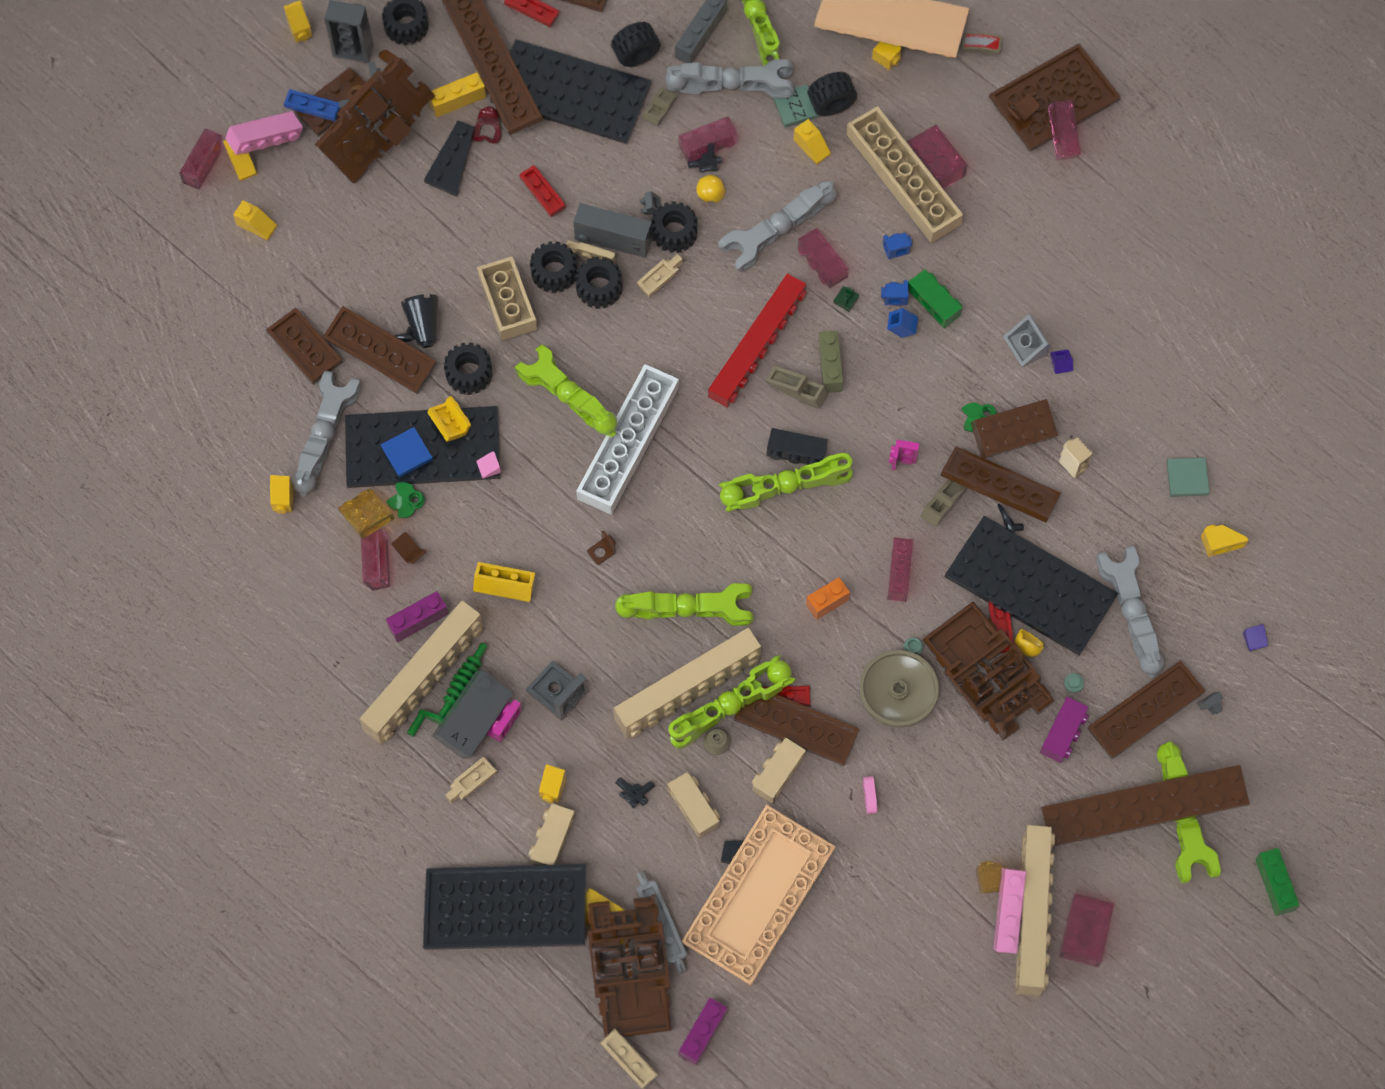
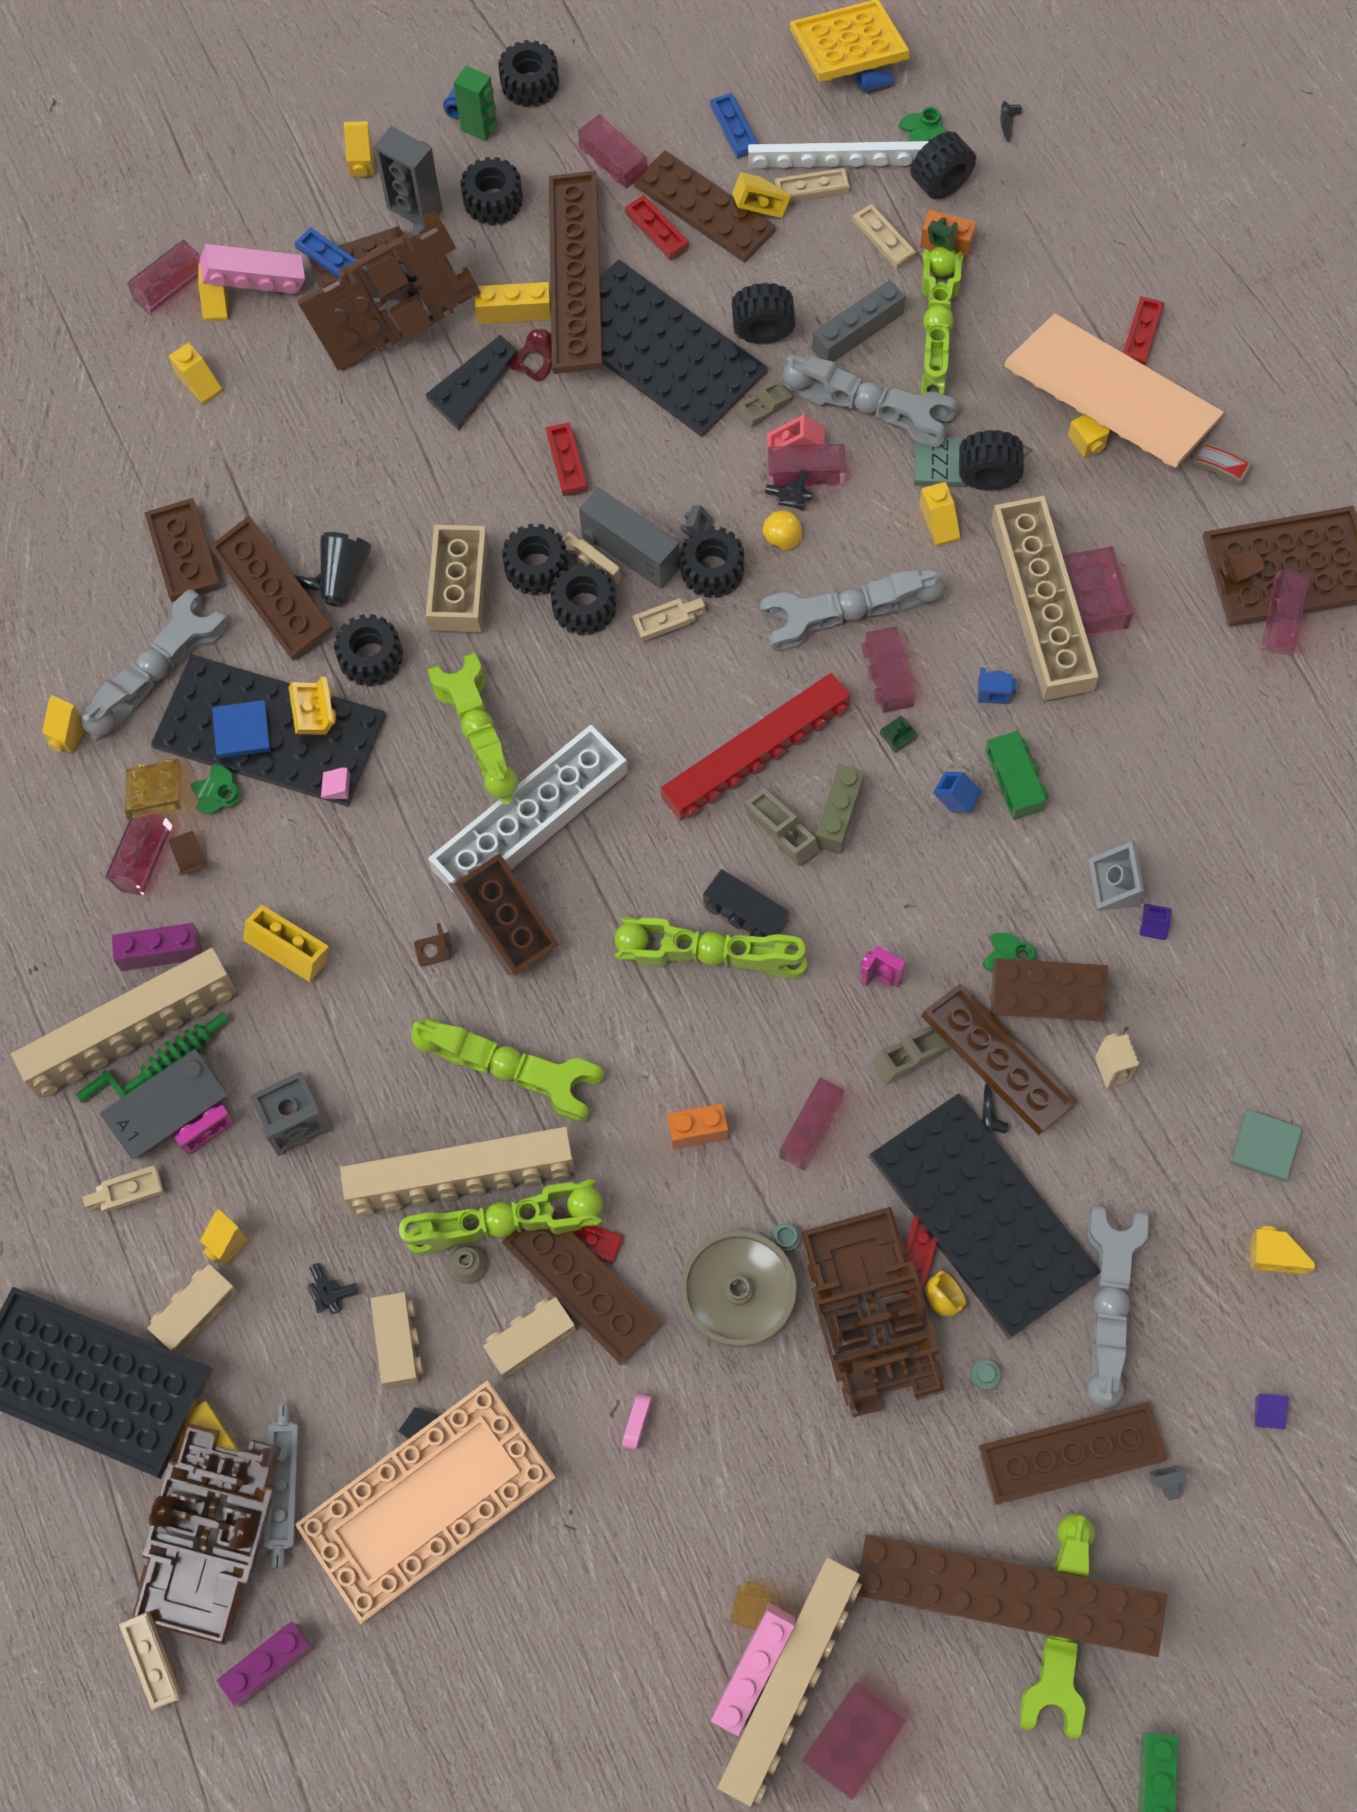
camera: 25 degrees right, 0 degrees up
(643, 508) = (503, 914): none -> reddish brown brick
(693, 119) = (797, 432): none -> coral slope
(895, 293) = (965, 750): blue brick -> none
(1065, 730) = (944, 1437): magenta brick -> none

